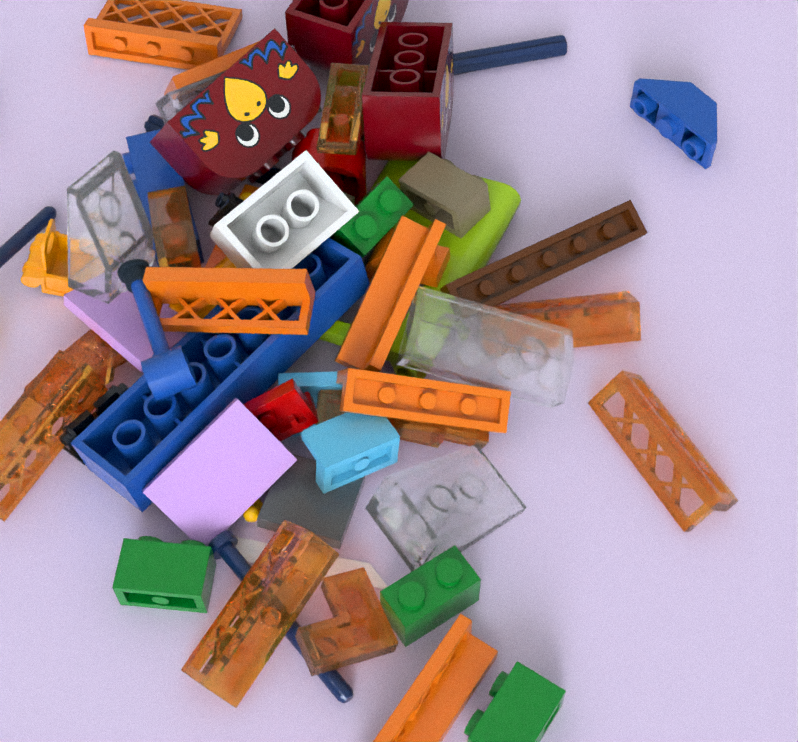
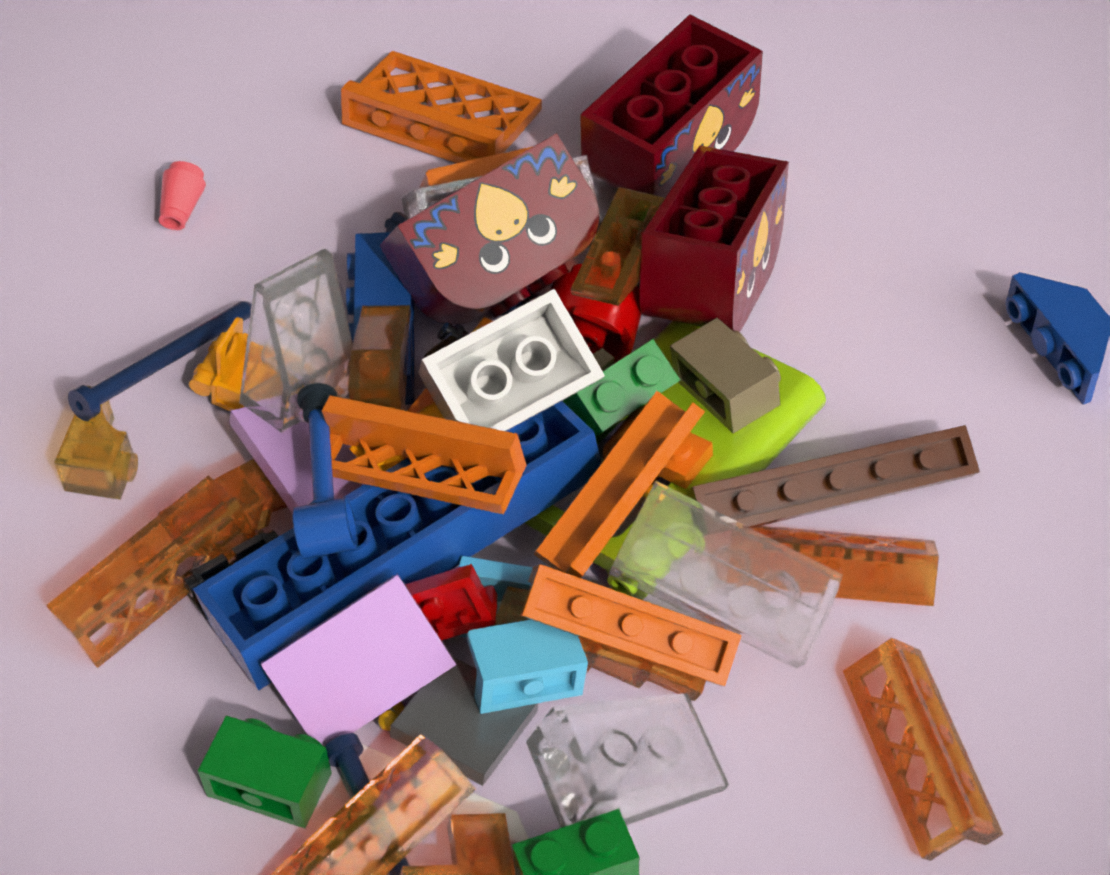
camera: 15 degrees right, 5 degrees down
(509, 54) = (863, 212): dark blue axle -> none

